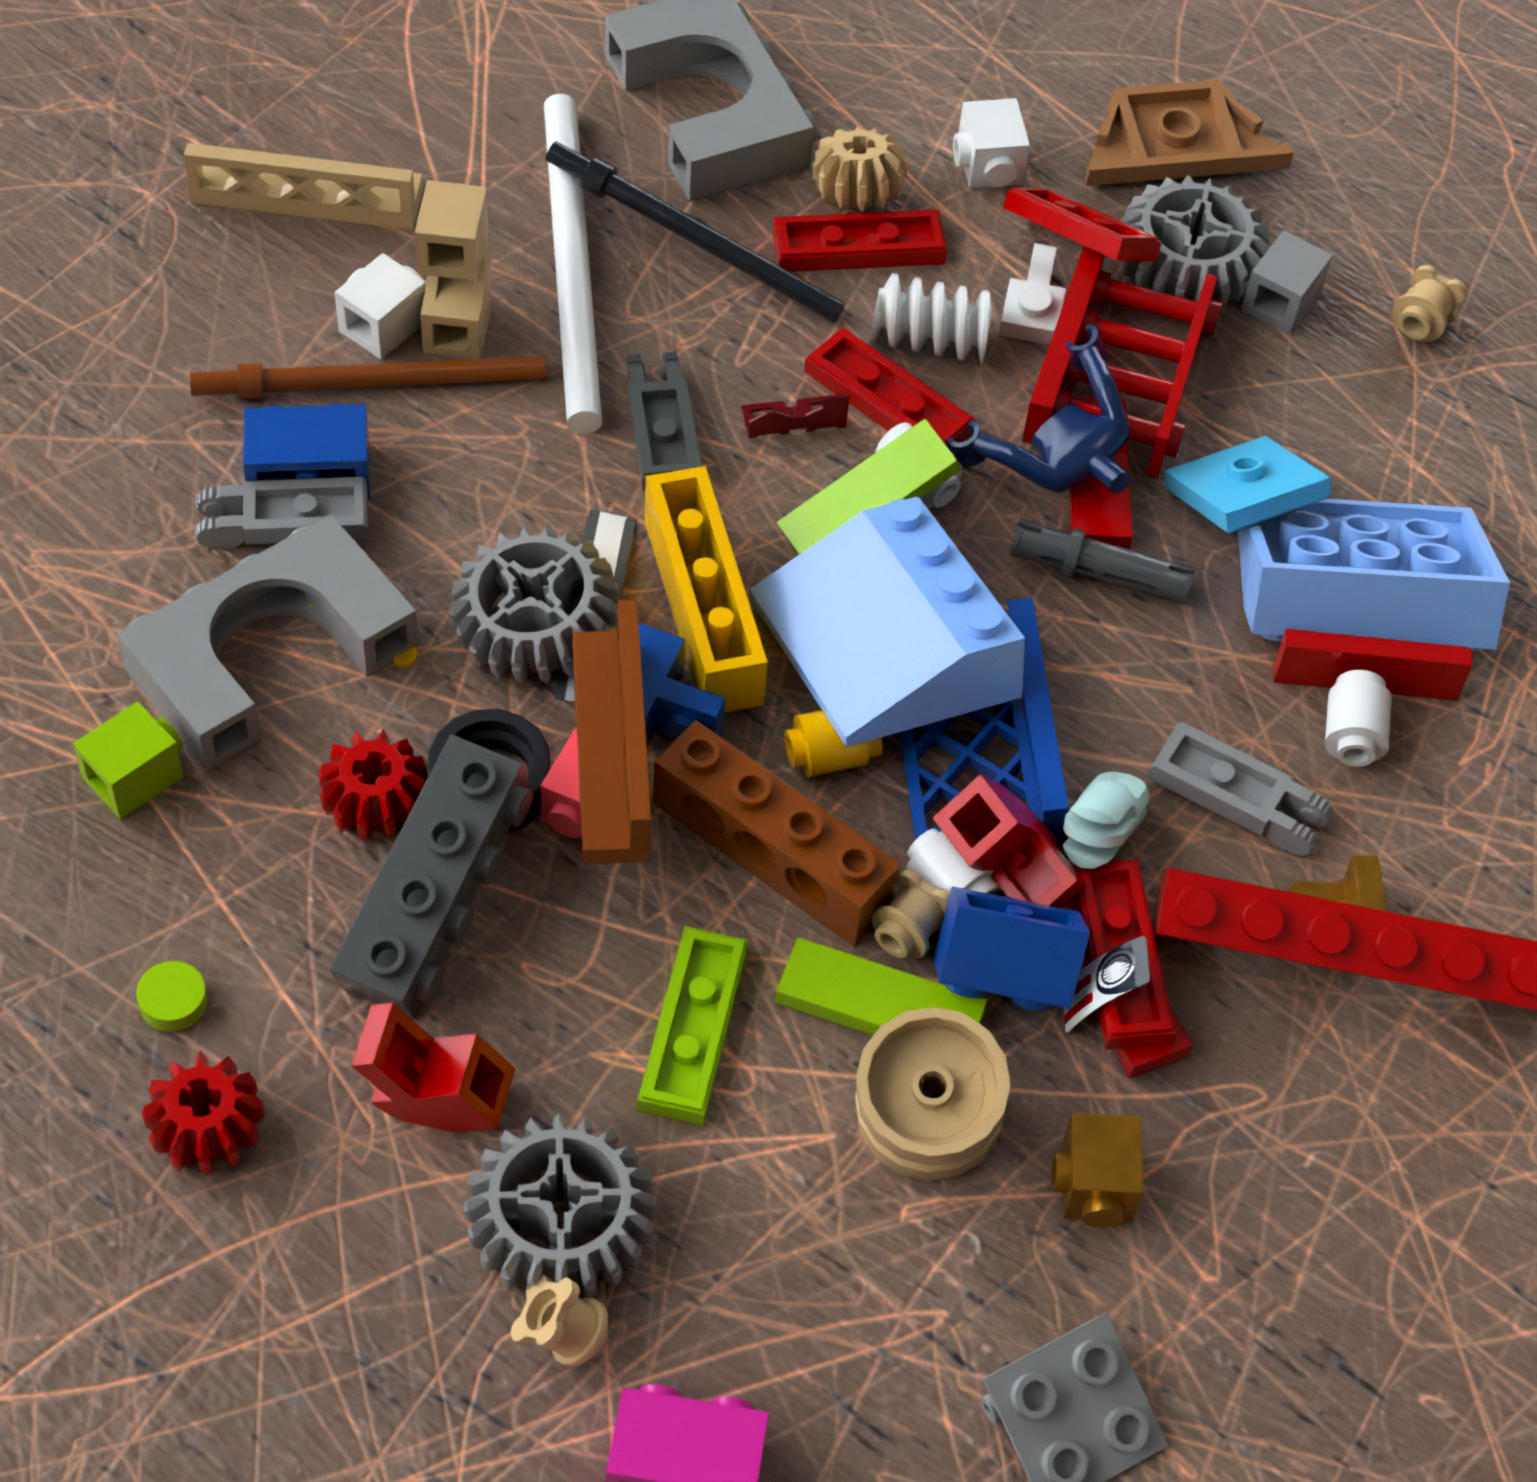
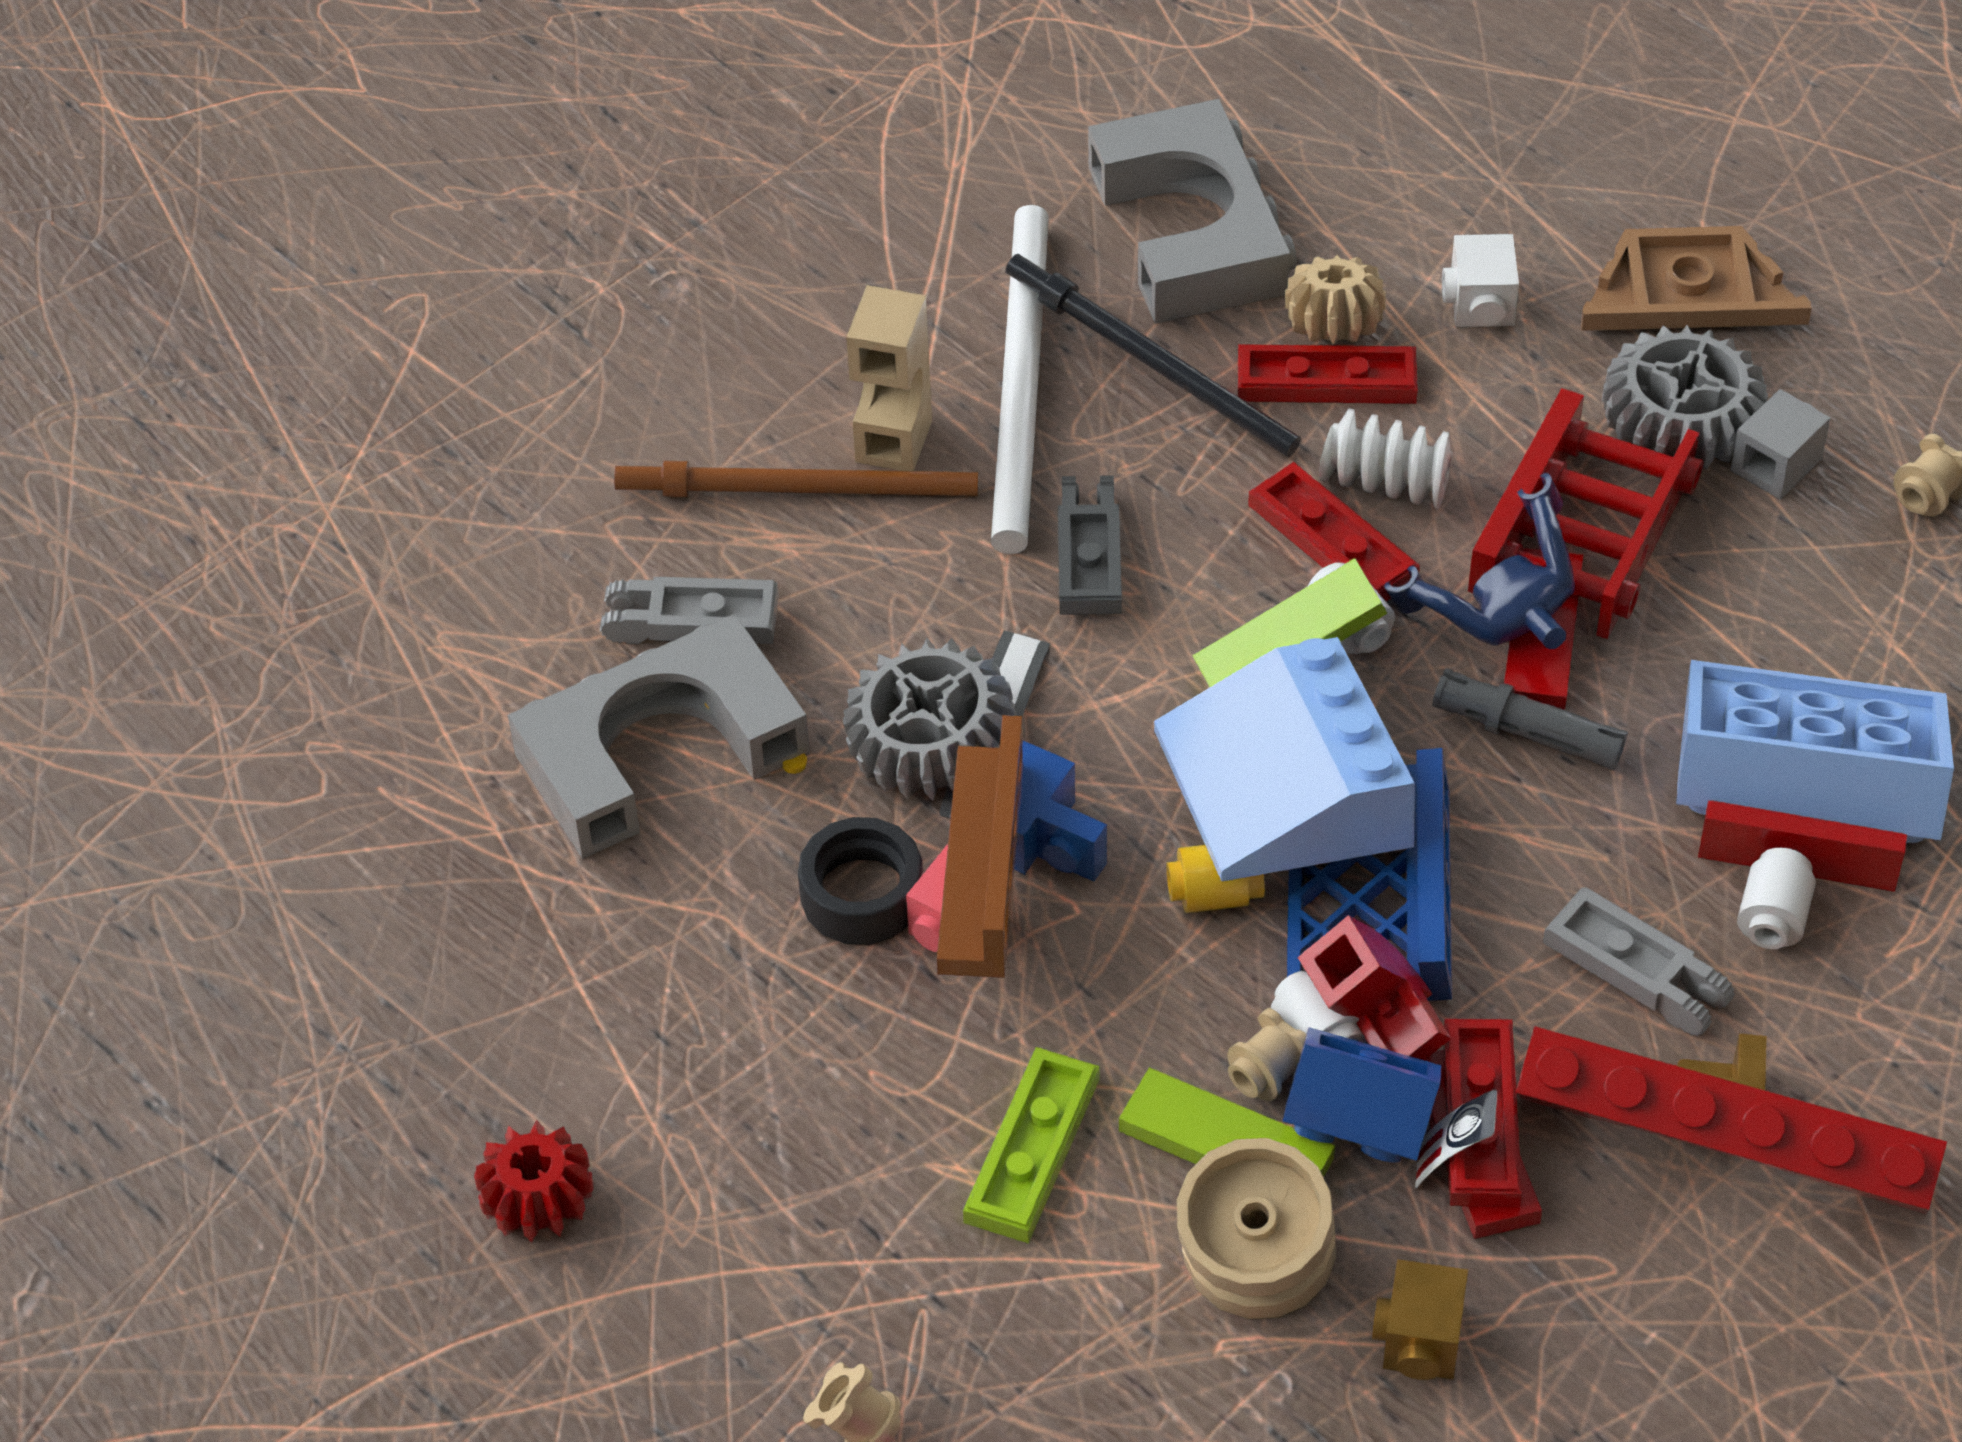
camera: 15 degrees right, 5 degrees down
(130, 759) = (507, 839): lime brick -> none
(172, 996) = (519, 1069): lime tile -> none
(303, 186) = (749, 284): tan fence -> none
(306, 442) = (722, 542): blue brick -> none
(371, 784) = (743, 884): red gear -> none
(380, 305) = (815, 410): white brick -> none
(429, 1080) = (756, 1171): red brick -> none
(433, 876) = (786, 974): dark grey brick -> none
(559, 1150) = (837, 1277): light grey gear -> none
(705, 588) = (1104, 714): yellow brick -> none
(774, 832) = (1139, 961): dark orange brick -> none
(781, 420) = (1265, 550): dark red piece -> none
(1033, 304) = (1500, 448): white plate -> none
(1082, 224) = (1562, 370): red tile -> none
(1104, 818) = (1483, 975): light aqua arm -> none
(1247, 484) = (1698, 650): medium azure plate -> none

